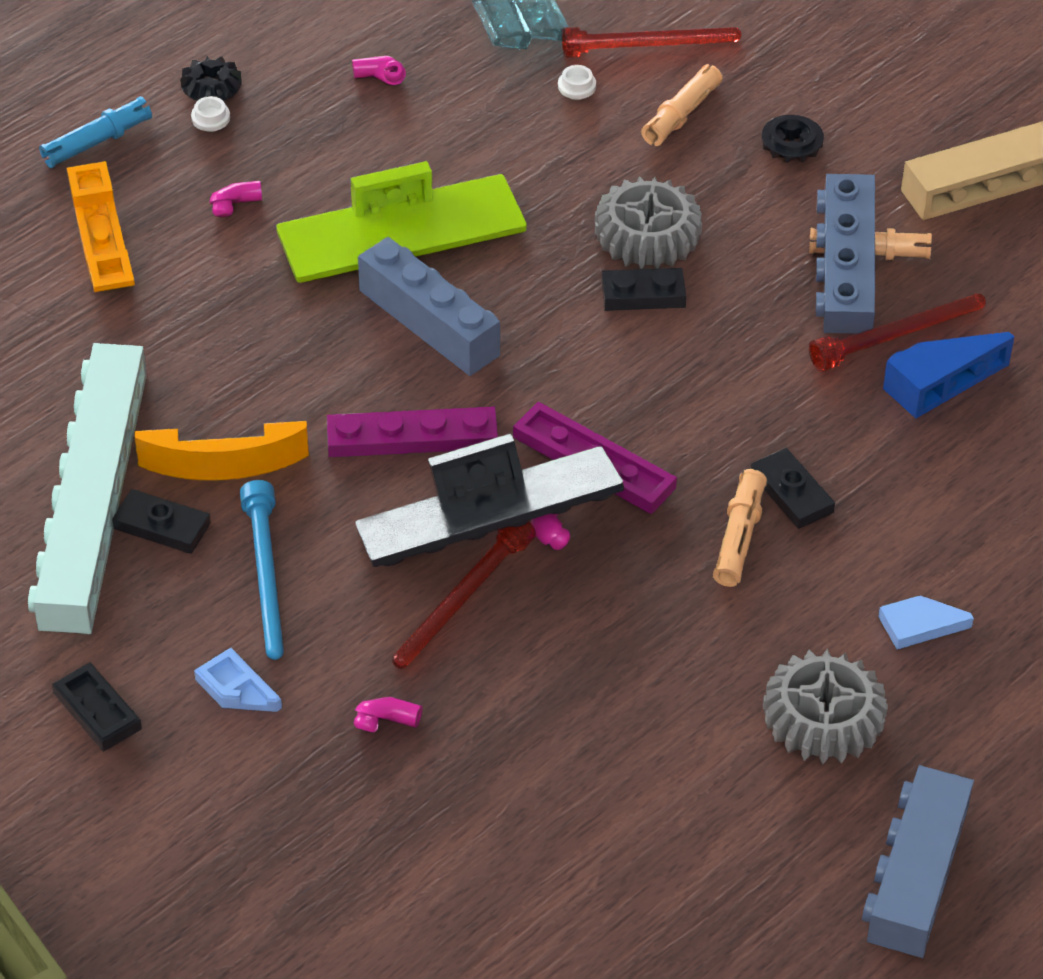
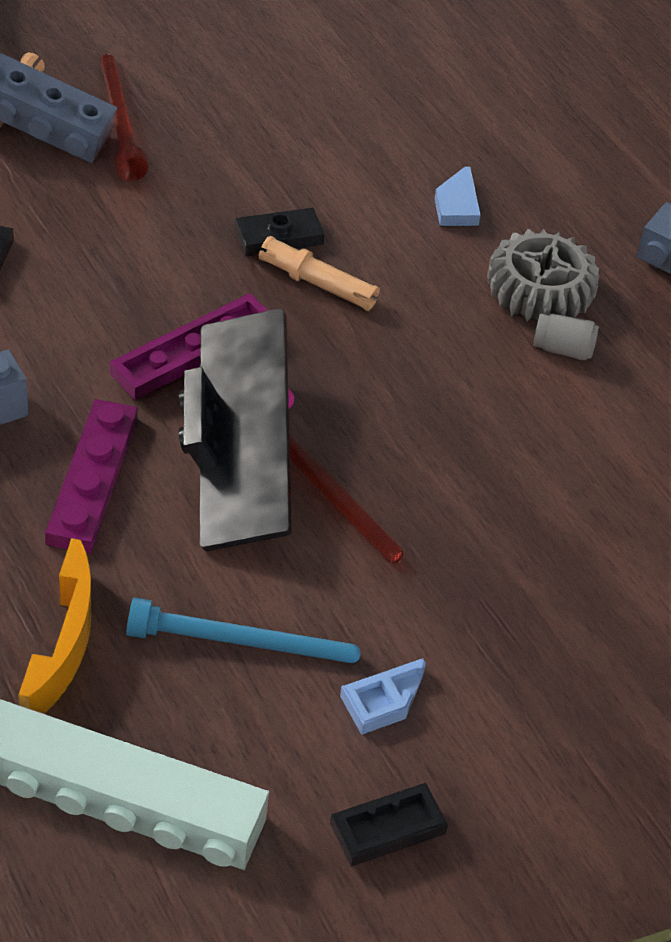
camera: 80 degrees left, 0 degrees up
(161, 521) = (138, 708): black plate -> none
(389, 709) = (458, 579): dark pink arm -> none
(745, 741) = (566, 336): none -> light grey piece
(944, 368) = (192, 107): blue slope -> none

